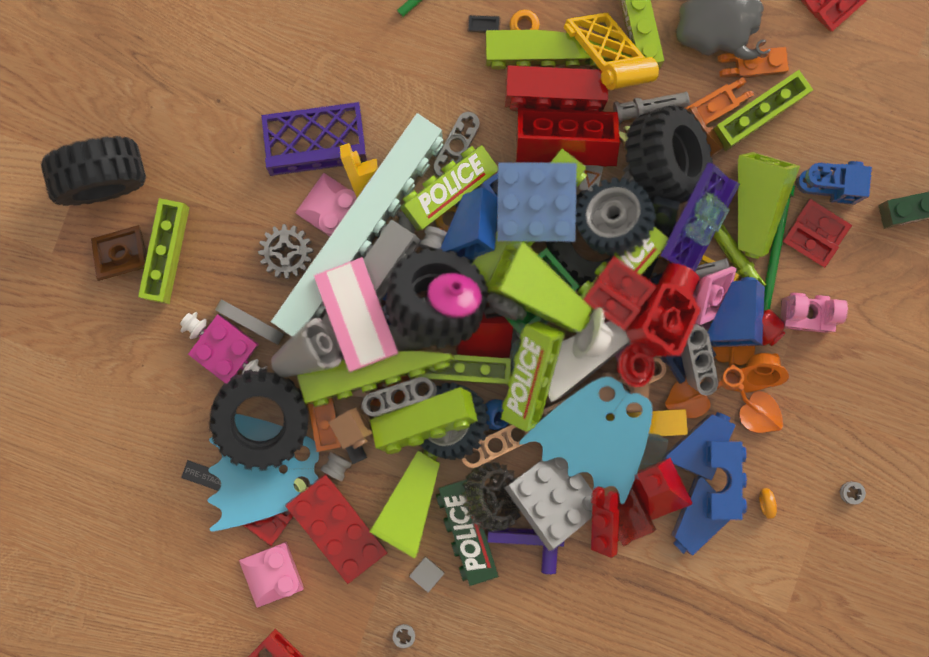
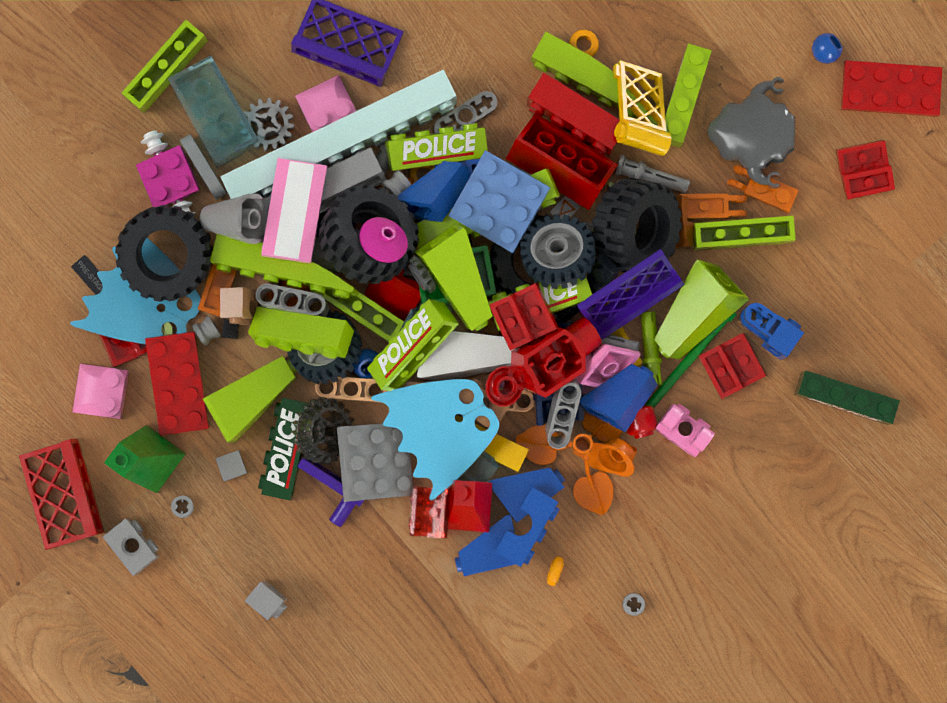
camera: 35 degrees right, 0 degrees up
(119, 252) = (126, 46): reddish brown slope -> none
(230, 267) = (213, 111): none -> clear light blue slope
(347, 615) = (145, 458): none -> green slope
(358, 172) = (366, 92): yellow slope -> none
(483, 23) = (549, 24): black piece -> none
(594, 338) = (480, 343): white piece -> none
(604, 522) = (405, 506): red hinge -> none
(710, 217) = (638, 296): clear light blue plate -> none

